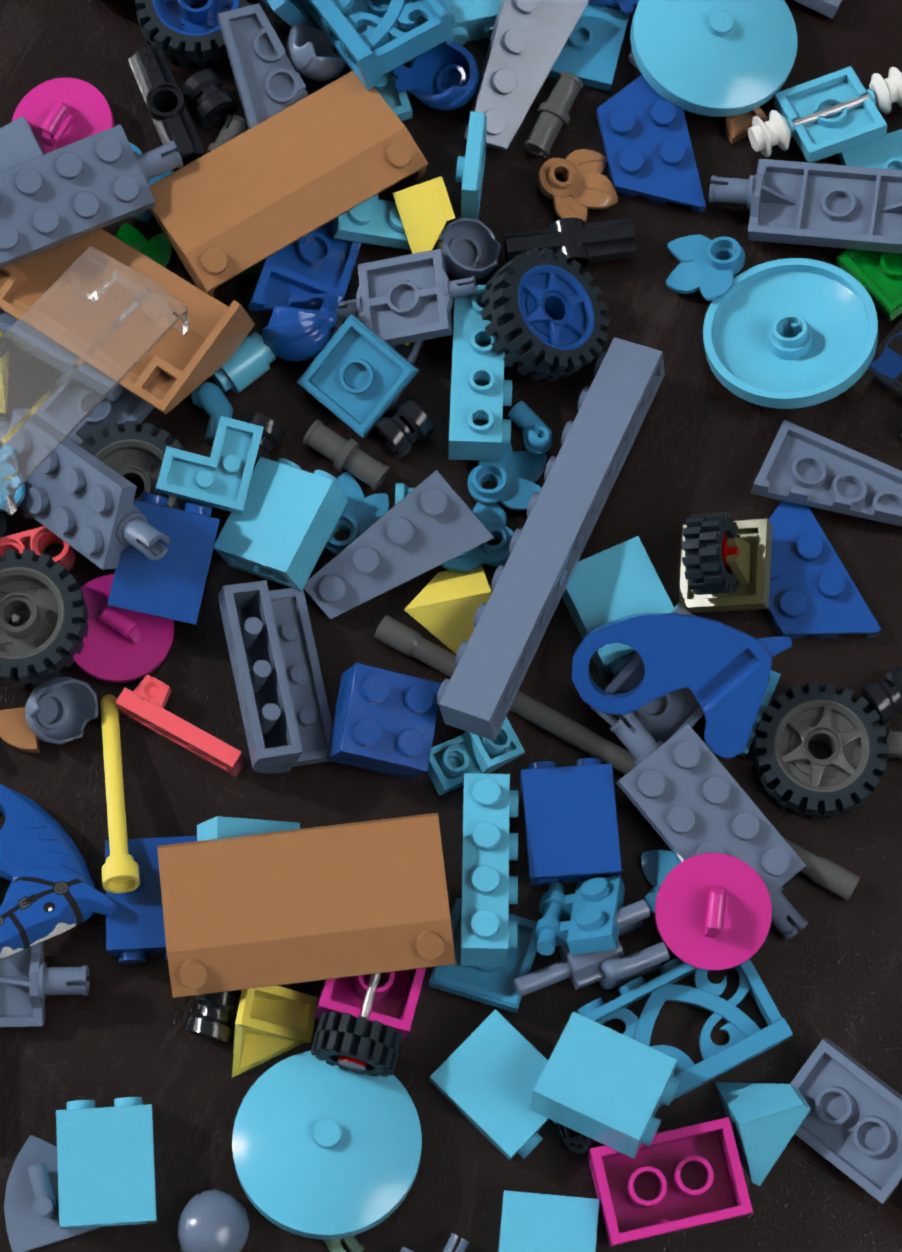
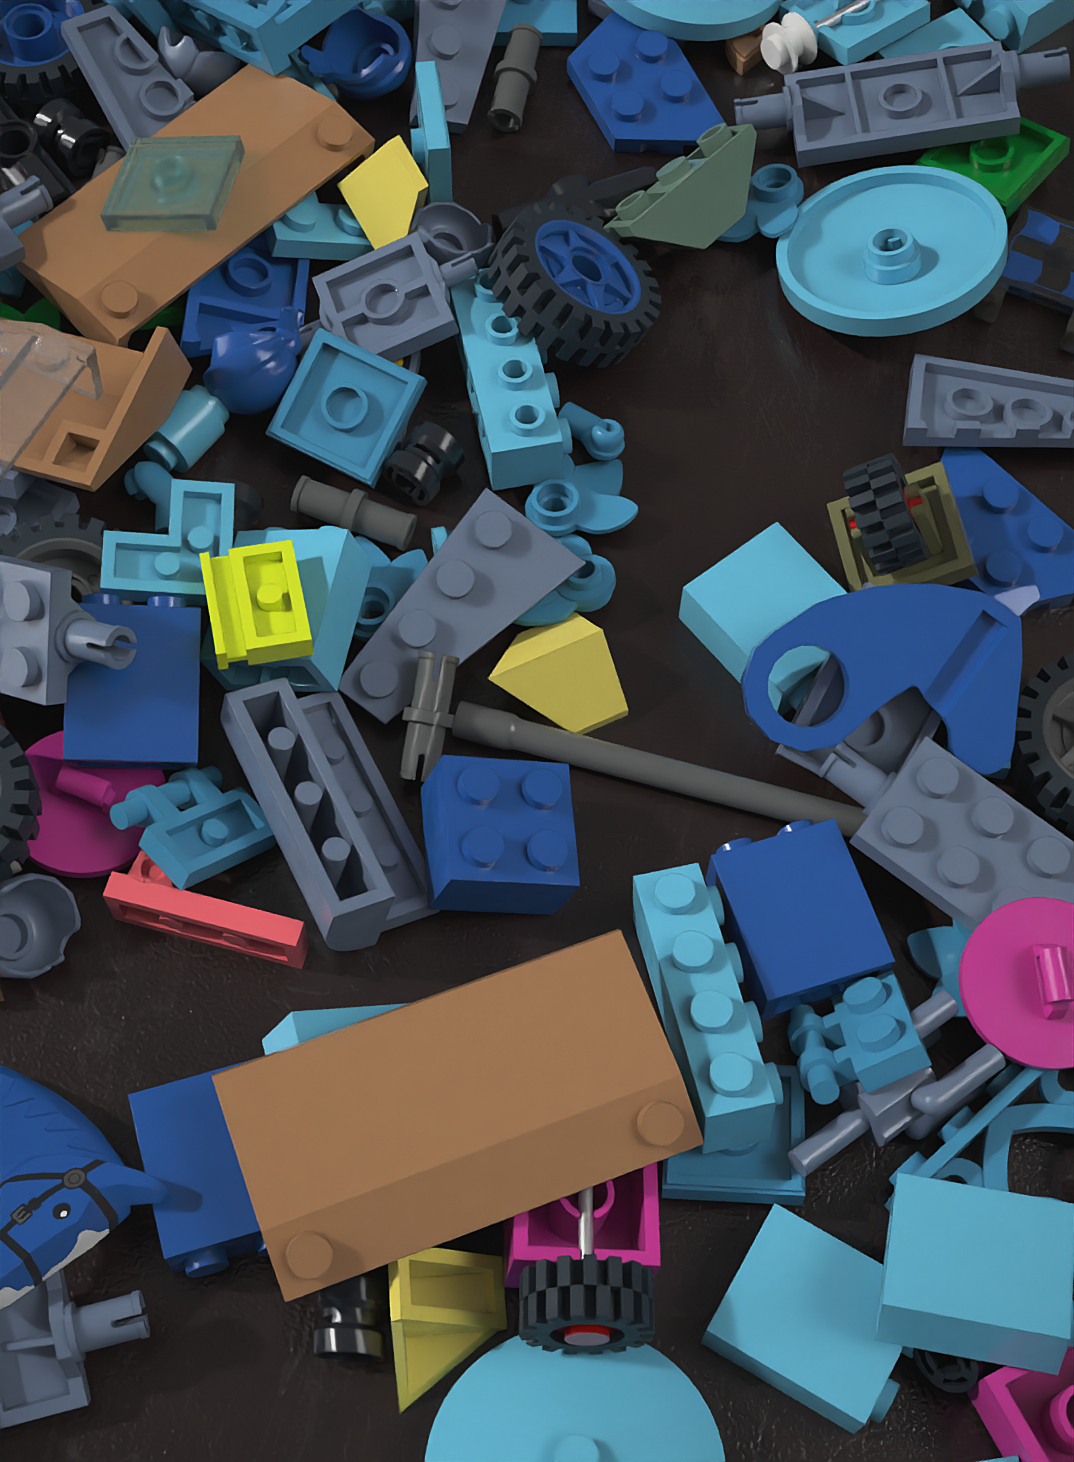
camera: 15 degrees left, 10 degrees down
(120, 871) = (161, 1129): light yellow piece -> none
(190, 677) = (203, 839): none -> dark azure plate
(257, 525) = (256, 604): none -> neon yellow plate
(272, 173) = (173, 183): none -> clear light blue plate
(359, 623) = (428, 715): none -> dark grey pin
(471, 755) = (639, 843): medium azure slope -> none
(551, 540) = (661, 562): sand blue brick -> none
(583, 184) = (565, 145): medium nougat plate -> none
(654, 256) = (694, 194): none -> sand green slope

